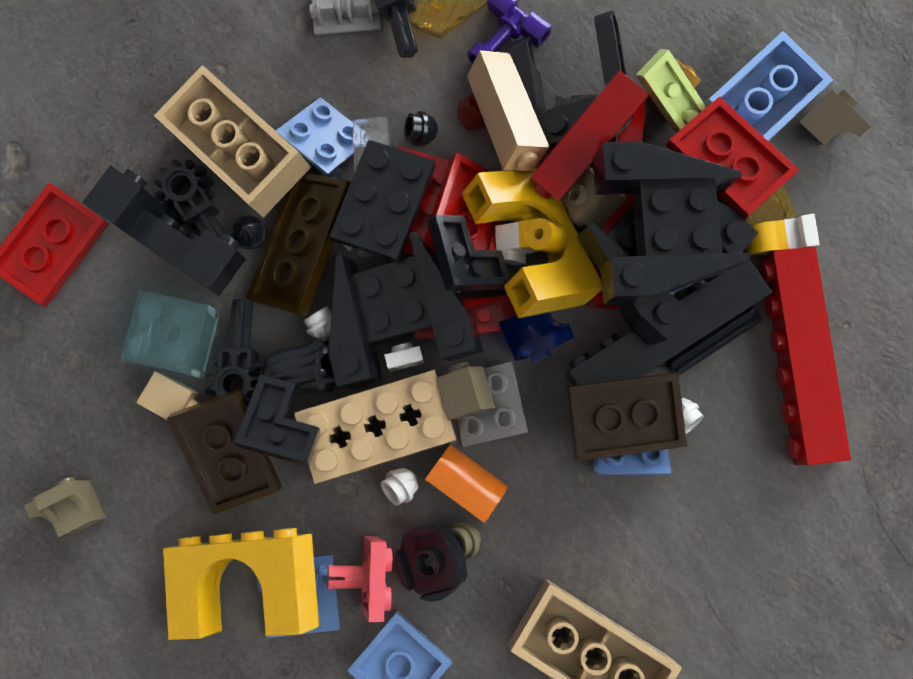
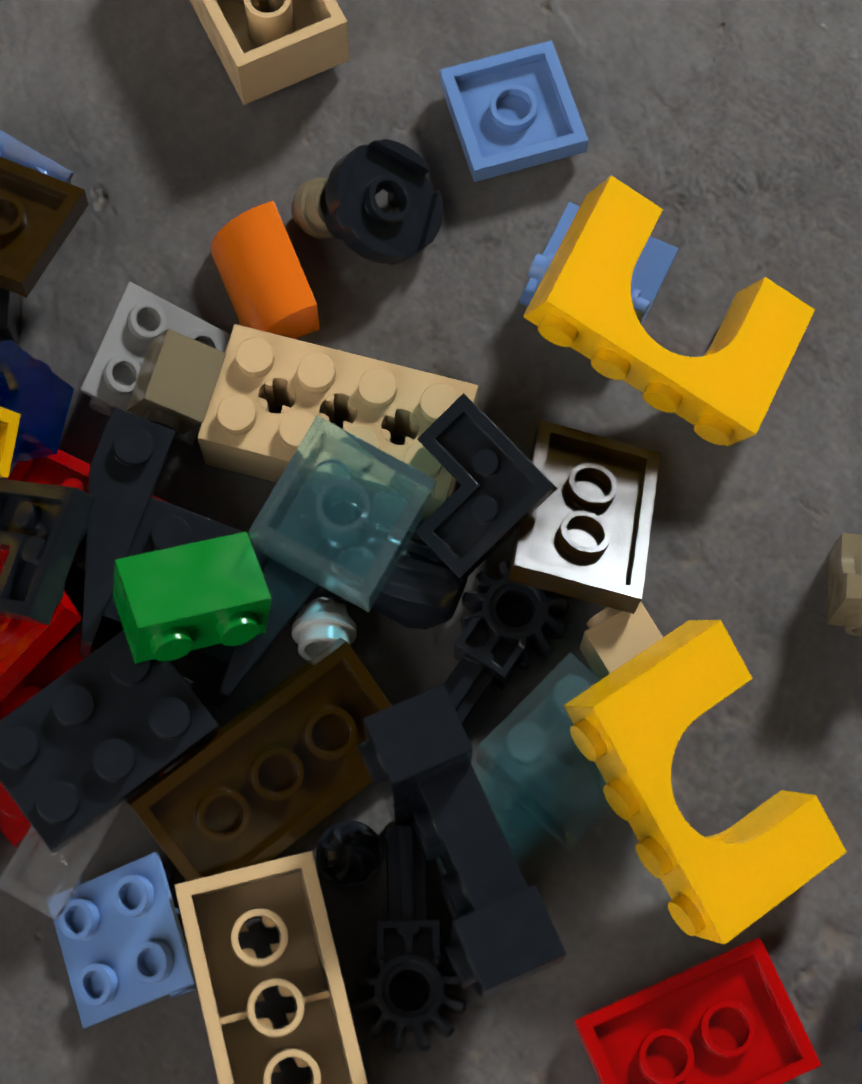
camera: 150 degrees left, 10 degrees down
(128, 348) = (631, 733): none -> yellow arch
(325, 360) = (342, 513): none -> clear light blue brick
(368, 578) = (478, 222): coral plate -> none
(373, 278) = (191, 597): none -> green brick
(400, 486) = (361, 328): white plate -> none
(404, 357) = (231, 499): white plate -> none

